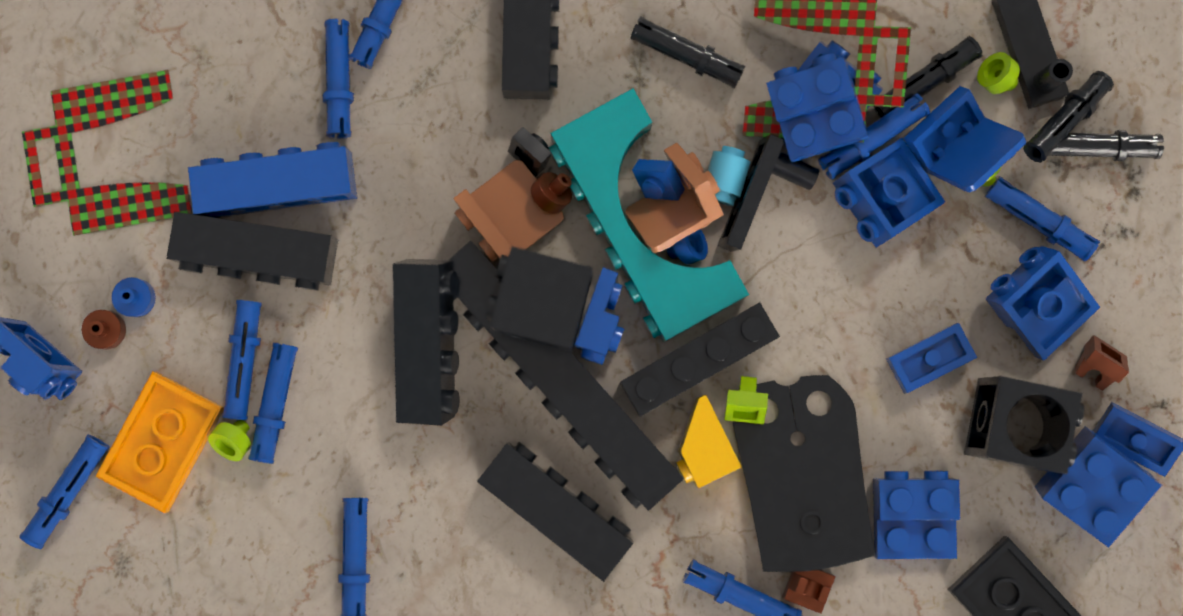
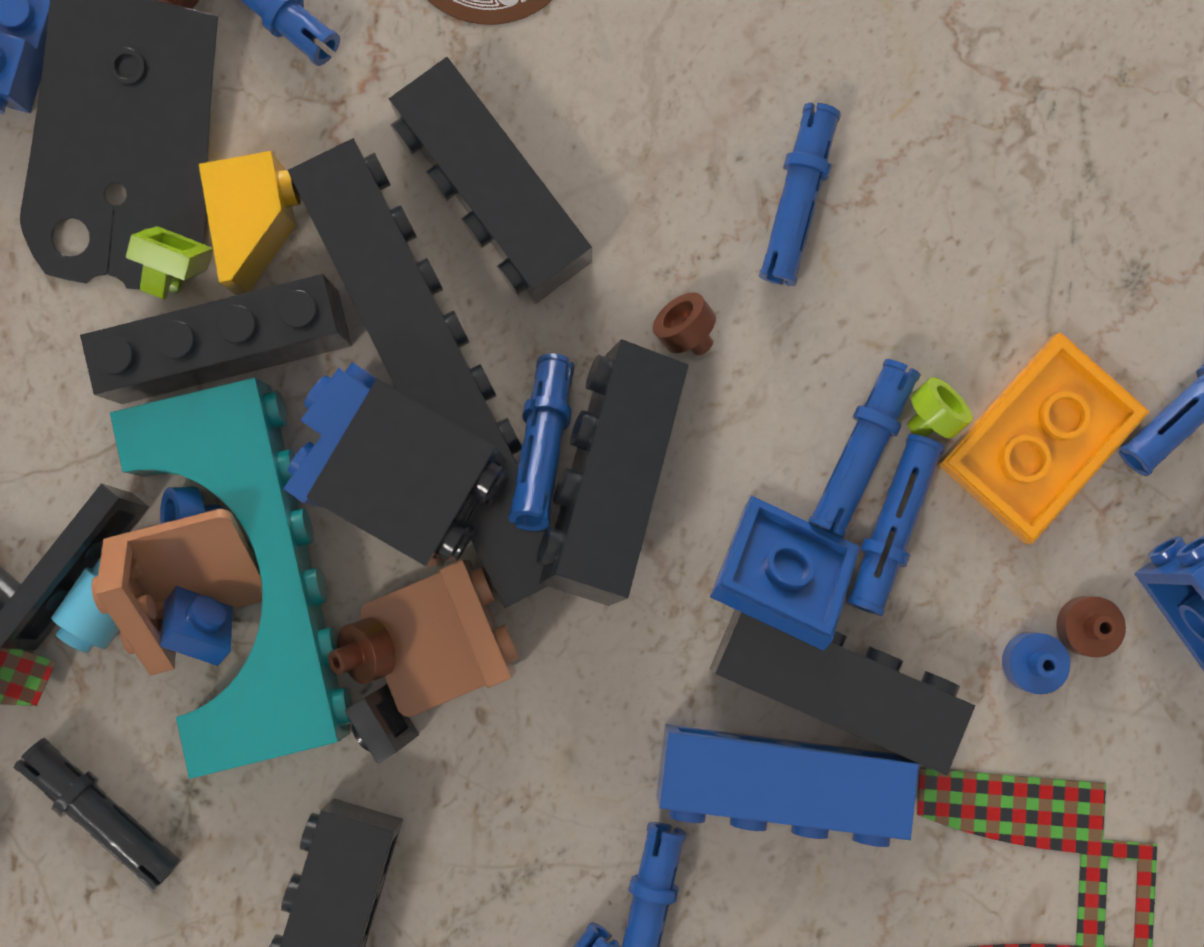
camera: 170 degrees left, 0 degrees up
(303, 310) = (786, 573): none -> blue tile
(407, 451) = (686, 324): none -> copper tile
(477, 365) = (545, 419): none -> blue pin

